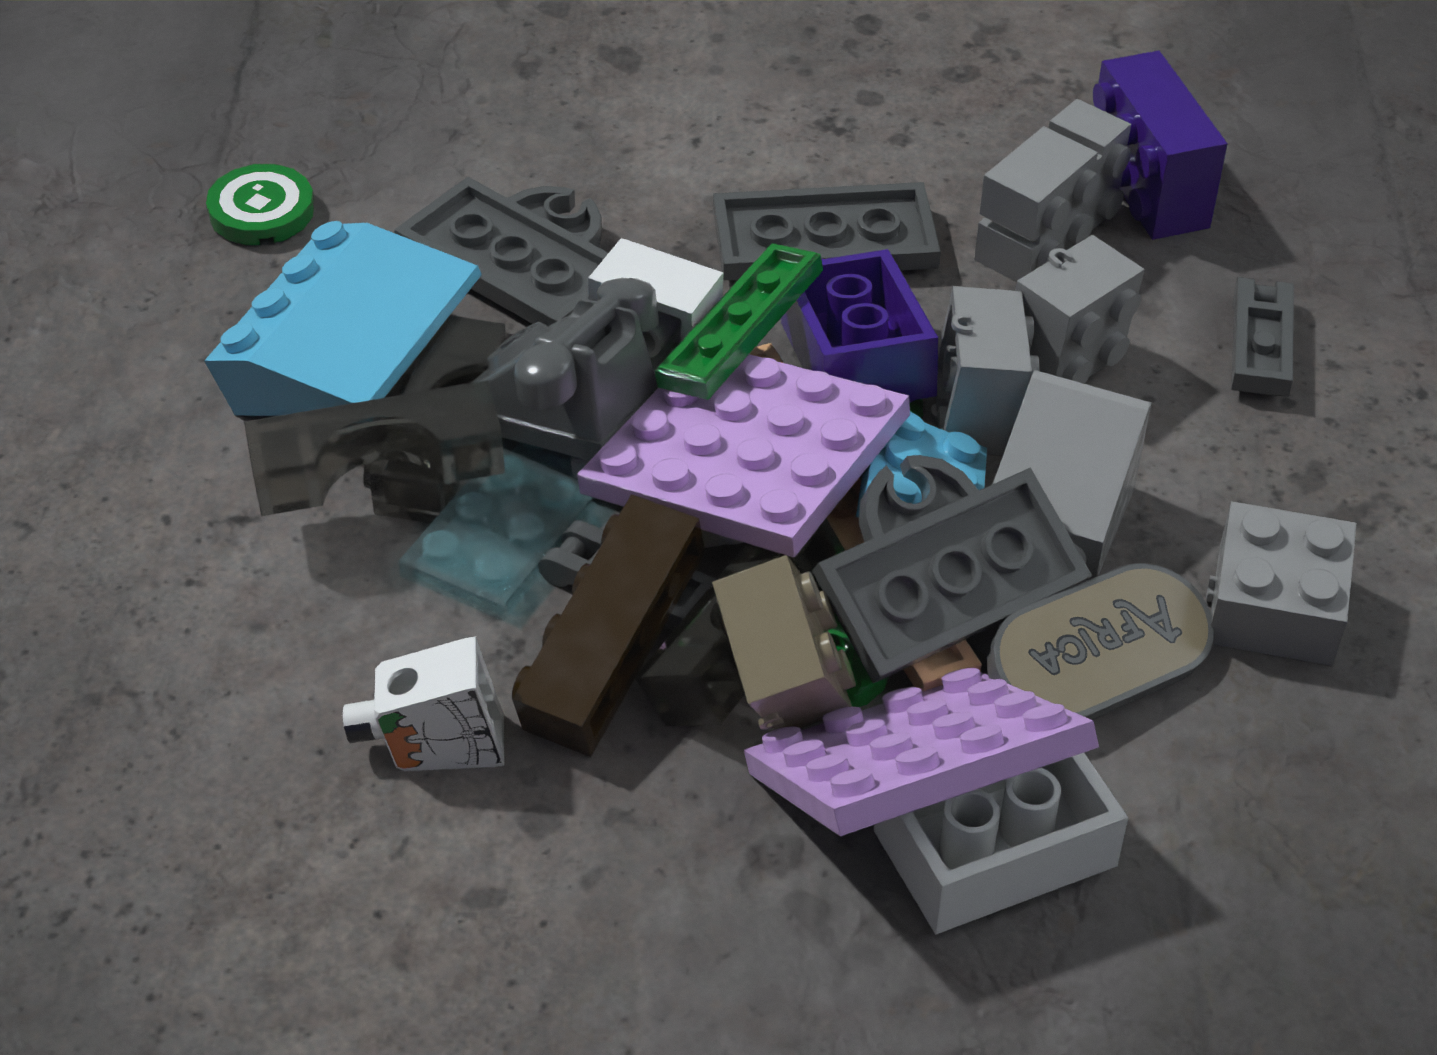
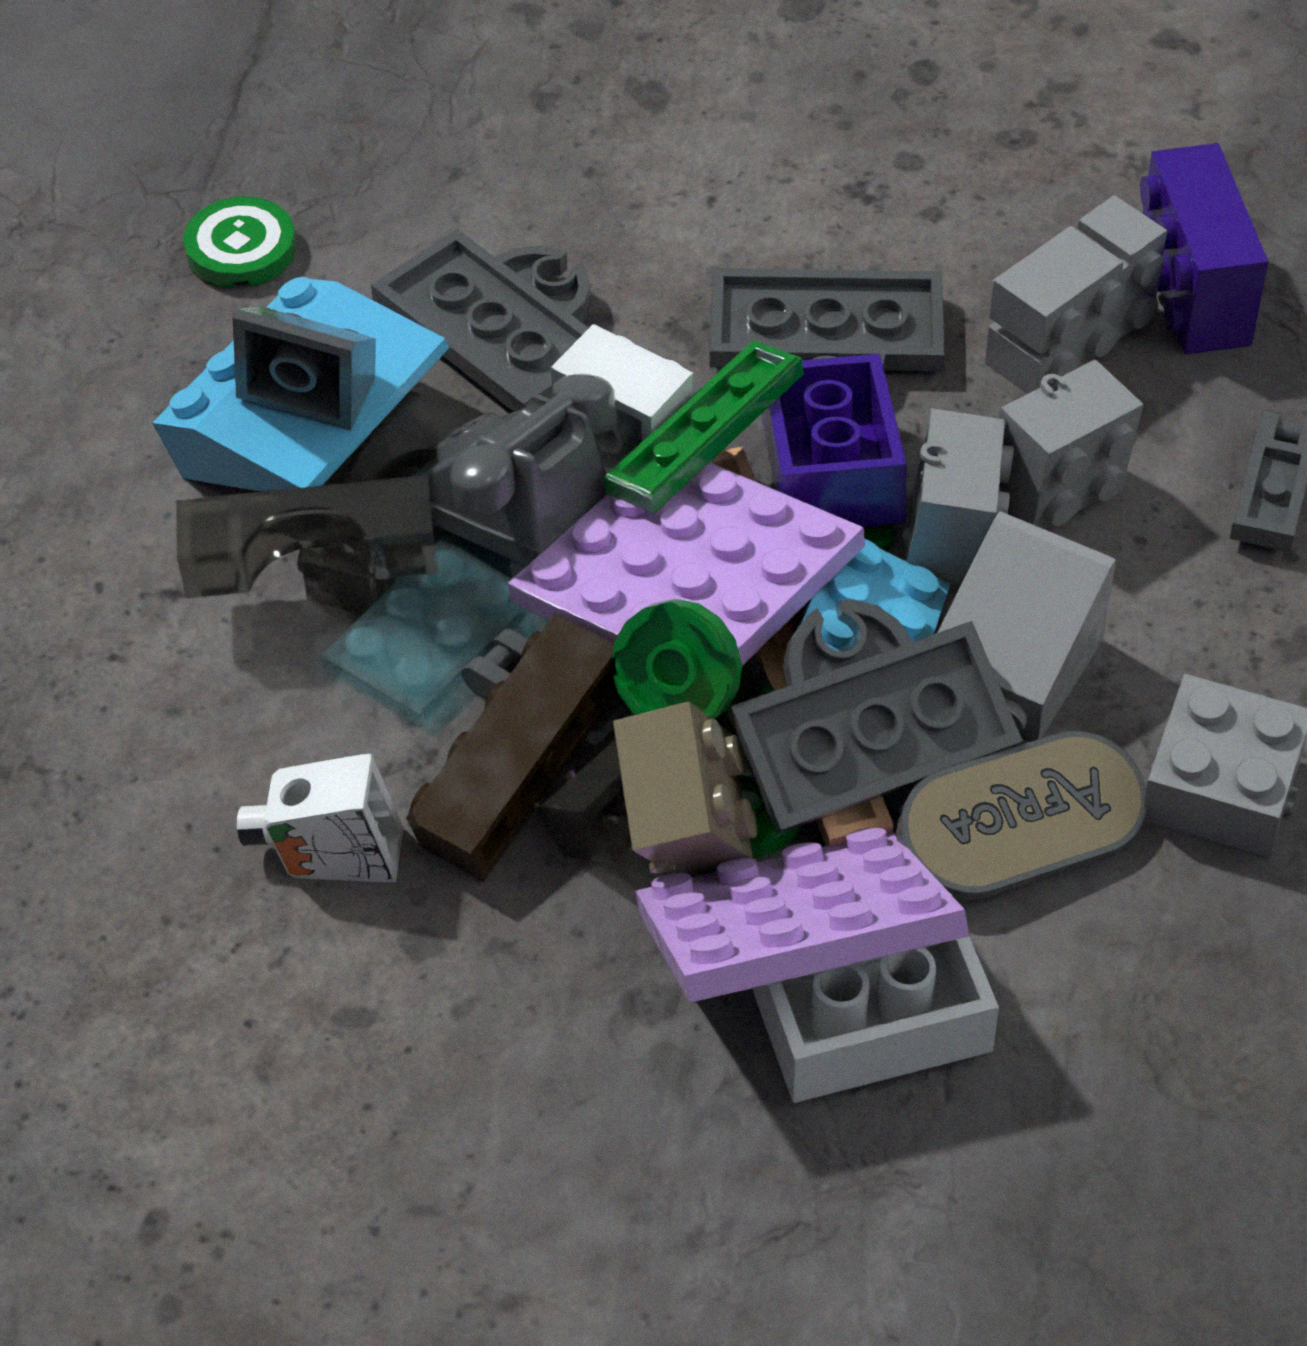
camera: 10 degrees right, 5 degrees up
(349, 293) = (302, 365): none -> dark grey slope
(758, 518) = (676, 656): none -> green tile

